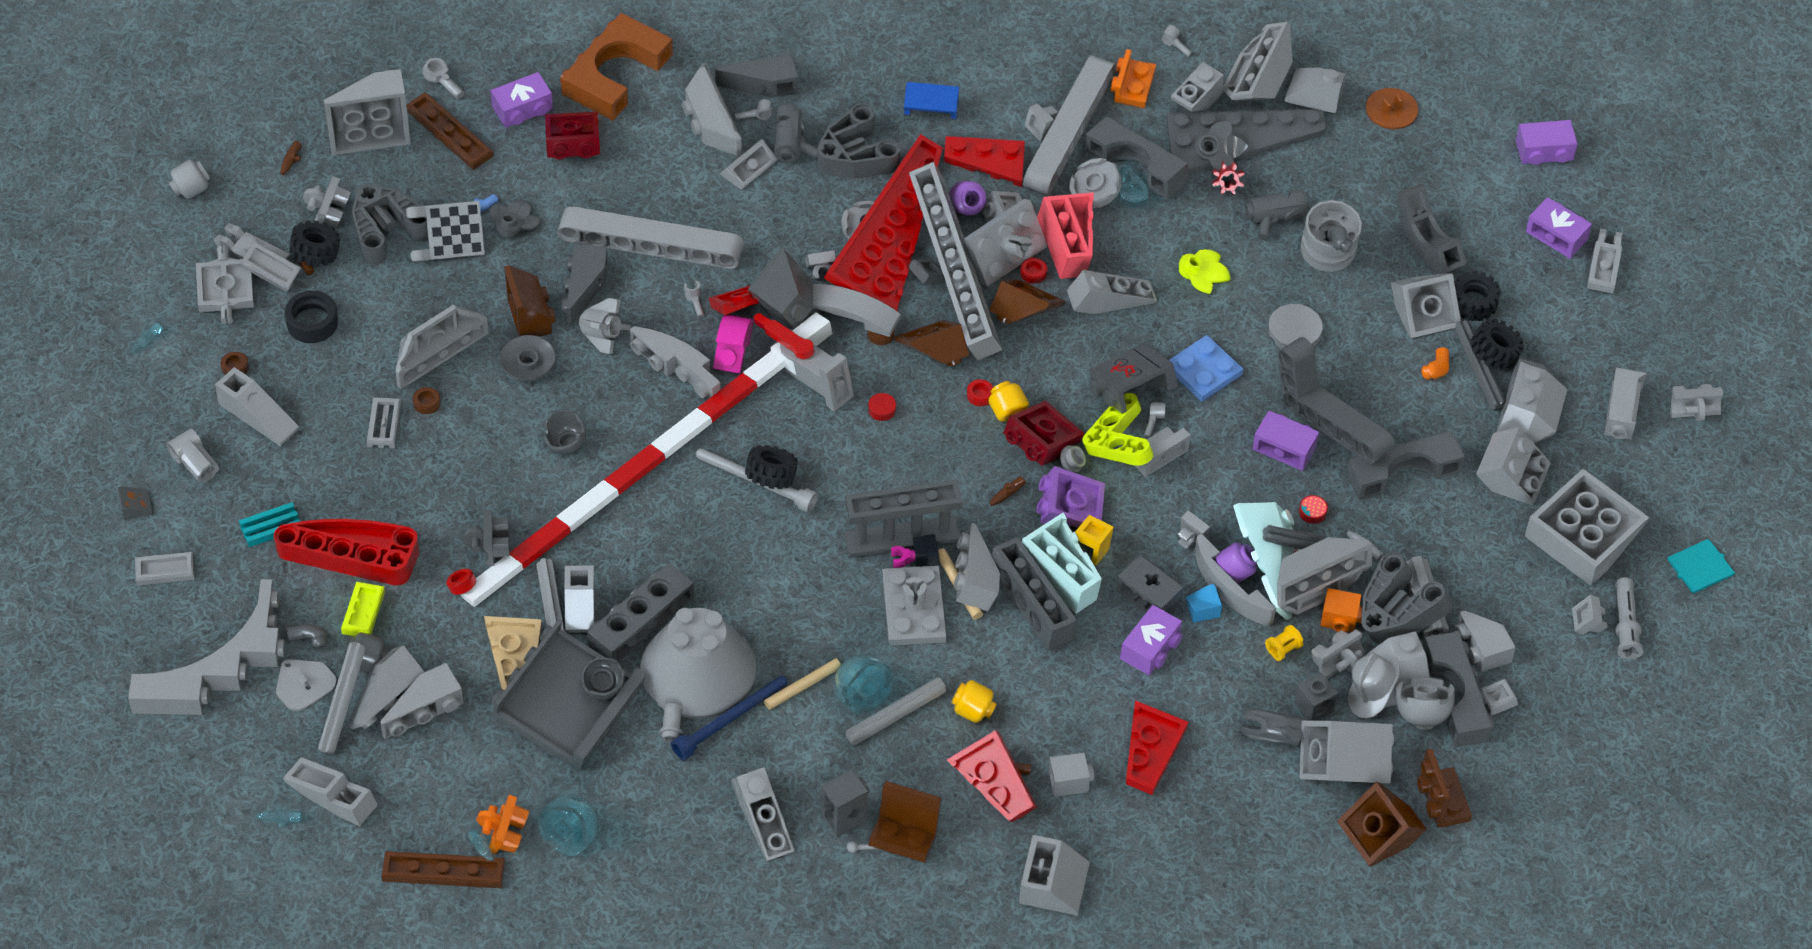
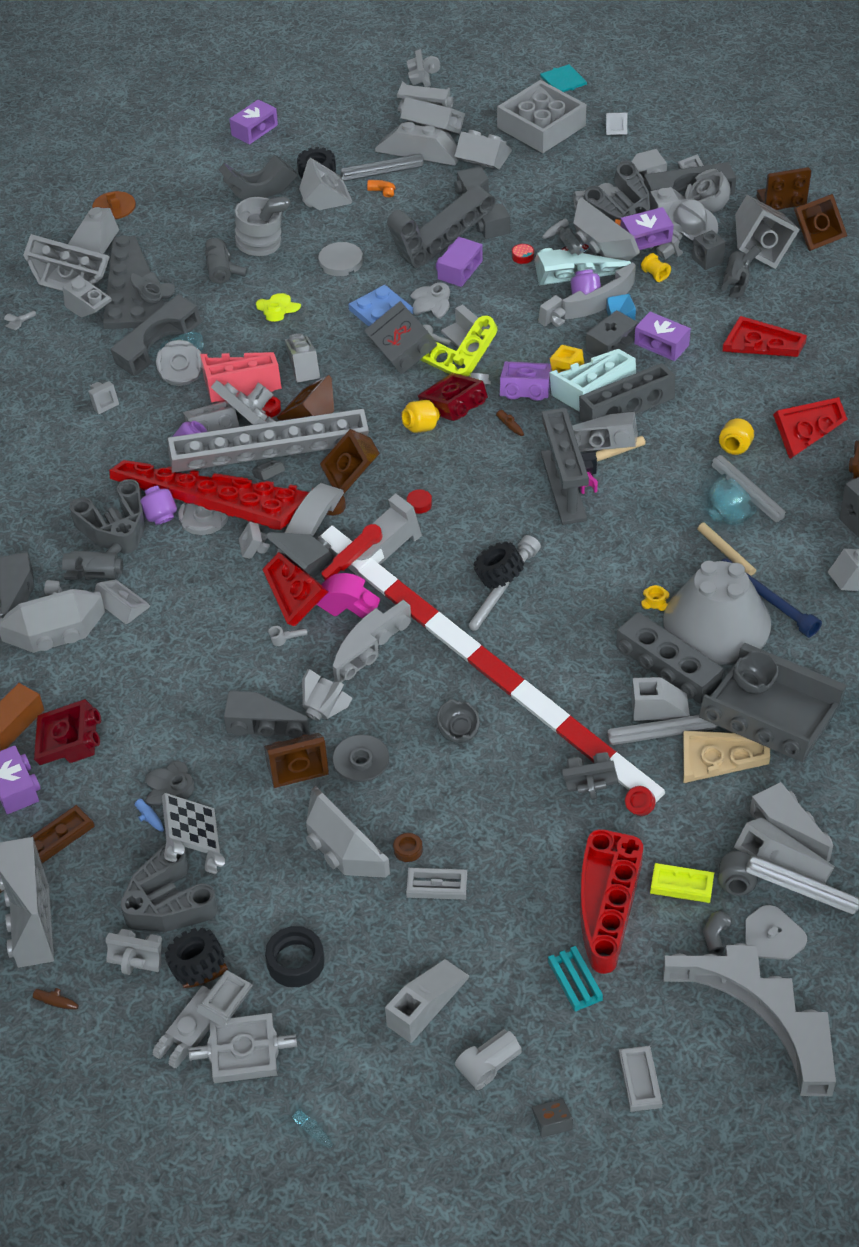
camera: 85 degrees left, 5 degrees down
(189, 179) = (80, 1096): light grey head -> none
(236, 360) = (355, 1032): reddish brown tile -> none
(651, 237) = (209, 669): light grey beam -> none
(671, 722) = (786, 633): light grey pin -> none
(734, 606) = (655, 598): none -> yellow plate
(868, 178) = (158, 505): none -> medium lavender head
(913, 605) = (636, 478): light grey plate -> none
(931, 98) = (65, 467): blue hinge -> none
(979, 392) = (403, 439): red tile -> none
(991, 156) = (134, 433): red wing -> none
(1069, 125) = (128, 384): light grey beam -> none
(1070, 774) = (800, 382): light grey brick -> none
(1133, 81) = (61, 344): orange bracket -> none
(1219, 415) = (431, 298): none -> light grey plate
(1225, 171) = (184, 285): gear -> none
(1325, 616) = (649, 227): none -> medium lavender brick
(1497, 344) = (368, 151): black tyre -> none
(1546, 142) = (168, 124): medium lavender brick -> none
(1555, 420) = (432, 115): none -> light grey window
(1605, 263) = (289, 103): light grey hinge -> none
(1628, 628) = (632, 107): light grey pin -> none

